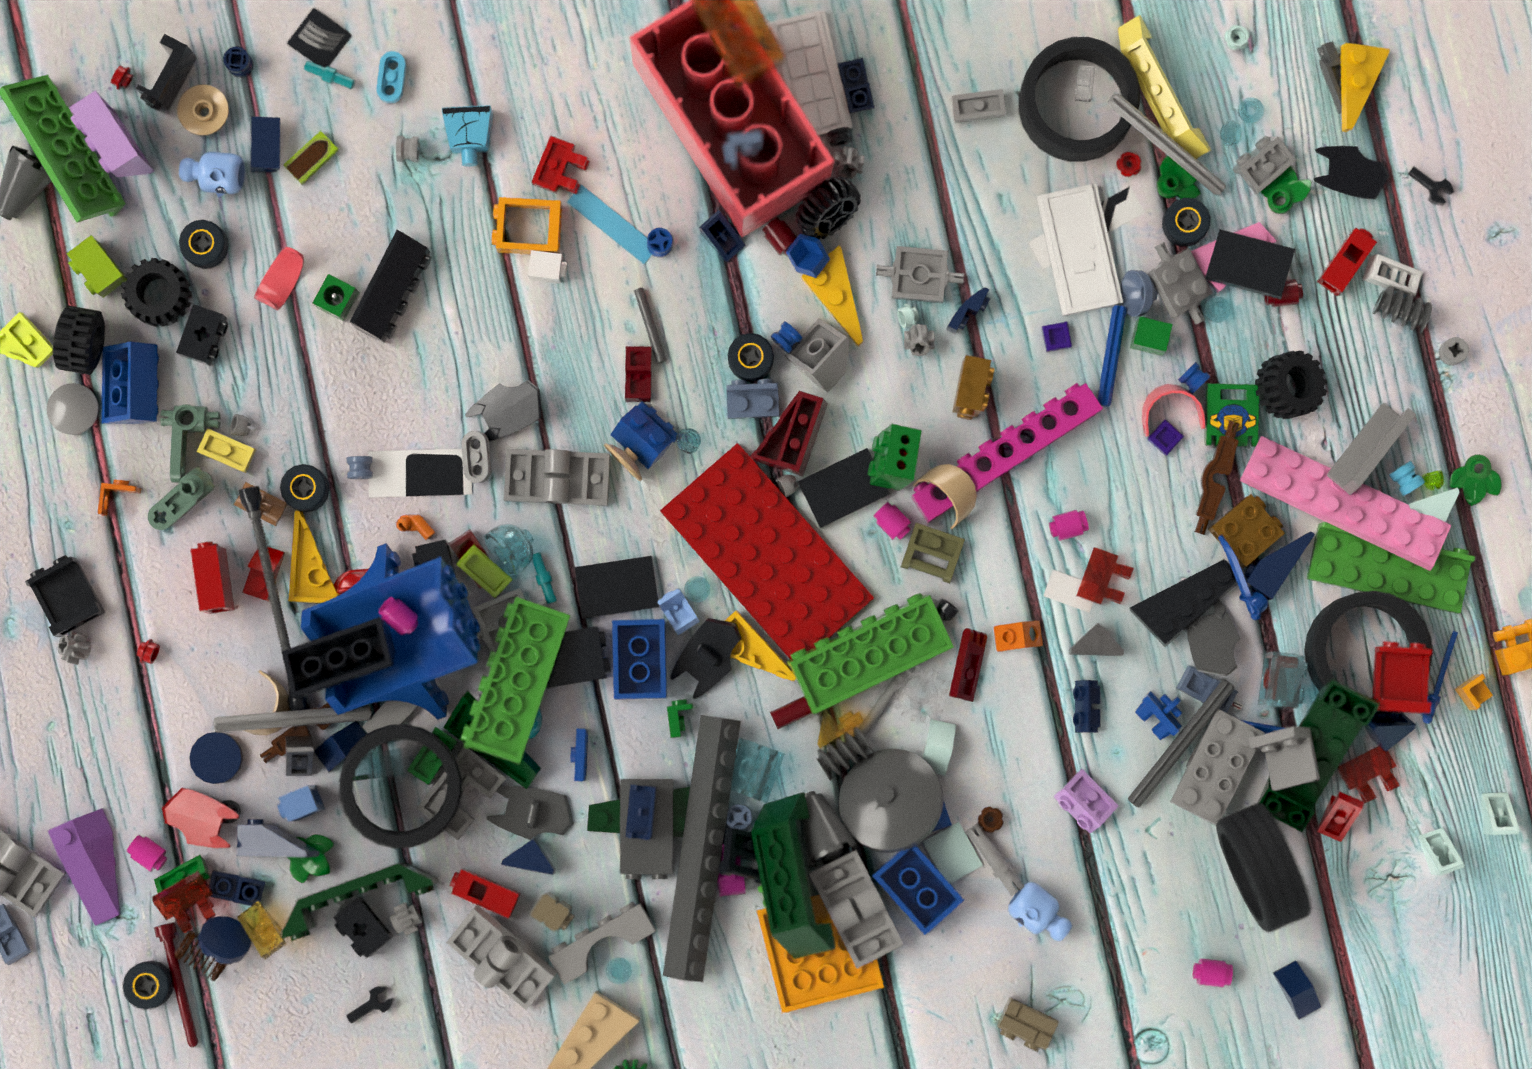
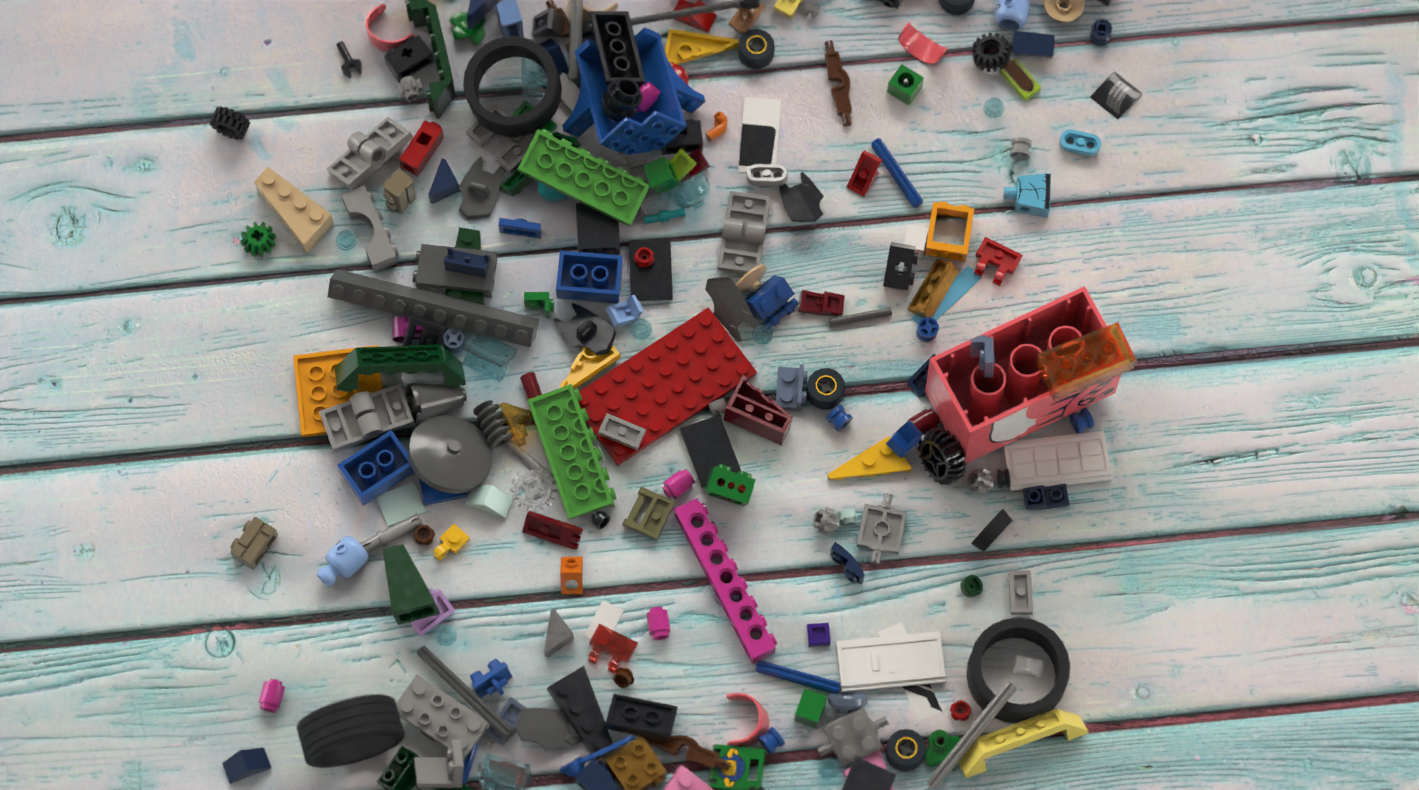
camera: 95 degrees right, 15 degrees down
(295, 195) = (987, 43): none -> black tyre
(326, 387) = (841, 92): none -> reddish brown piece
(329, 74) = (1086, 98): teal bar -> none
(348, 181) = (993, 102): none -> clear light blue plate
(349, 953) = (381, 44): none -> coral piece
(359, 467) = (768, 89): sand blue wheel -> none
(390, 287) = (909, 122): black slope -> none
(411, 643) = (621, 99): none -> black piece
(454, 298) = (897, 173): none -> blue axle
(463, 336) = (864, 173): none -> red slope
(497, 585) = (661, 175): none -> green piece
(585, 281) = (897, 254): none -> black brick
(604, 241) = (933, 288): none -> pearl gold slope
(605, 602) = (644, 252): none -> red plate
(658, 483) = (729, 305): none -> dark grey shield
(821, 354) = (820, 441): light grey slope -> none
(839, 594) = (622, 431): none -> light grey plate
(912, 142) = (992, 530): none -> black tyre
(956, 486) = (697, 531): tan piece -> none
(971, 387) = (781, 555): pearl gold brick -> none
(977, 163) = (971, 586): none -> dark green tile
(993, 784) = (451, 541): none -> yellow plate
(1068, 828) = (407, 589): none -> dark green slope
(1085, 718) = (497, 620): dark blue hinge -> none
(1120, 776) = (445, 629): none -> clear light blue plate
(1138, 558) = (623, 677): none -> reddish brown plate
(1165, 437) = (723, 713): dark purple tile -> none
(1187, 531) = (641, 717): none -> black tile

